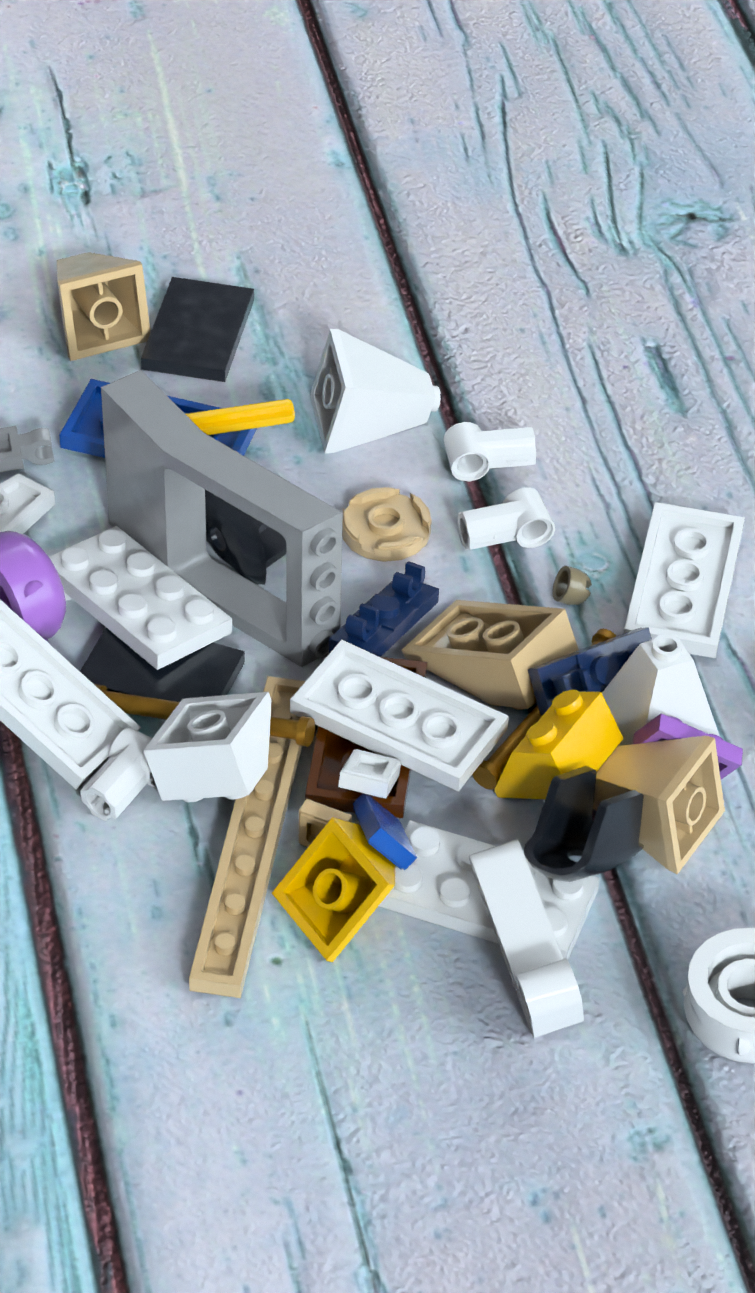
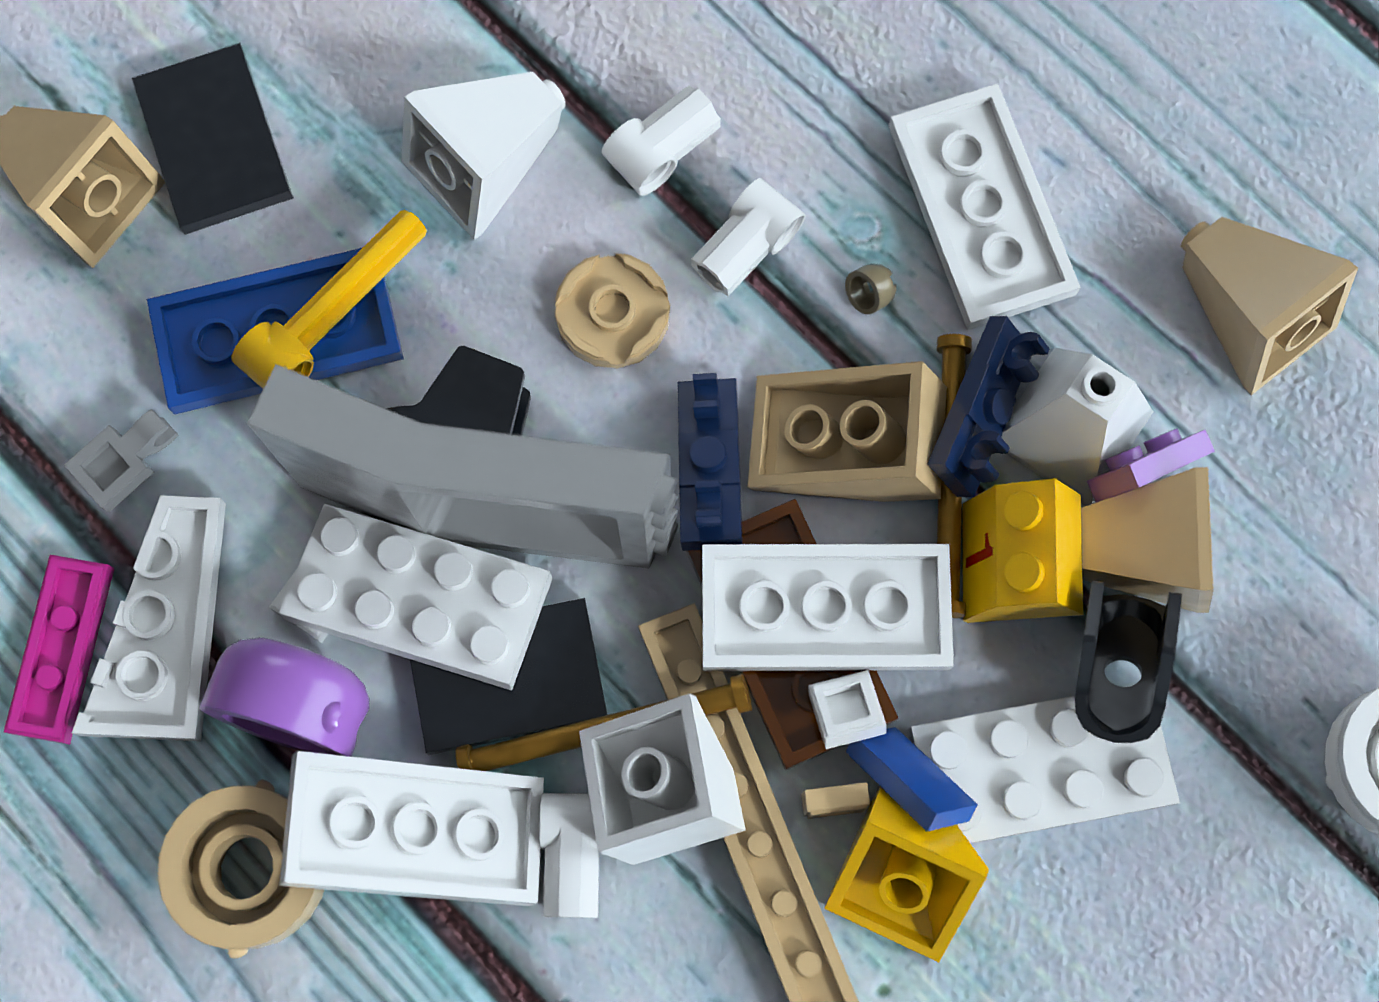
camera: 30 degrees left, 30 degrees up
(527, 939) = (1157, 841): white beam -> none

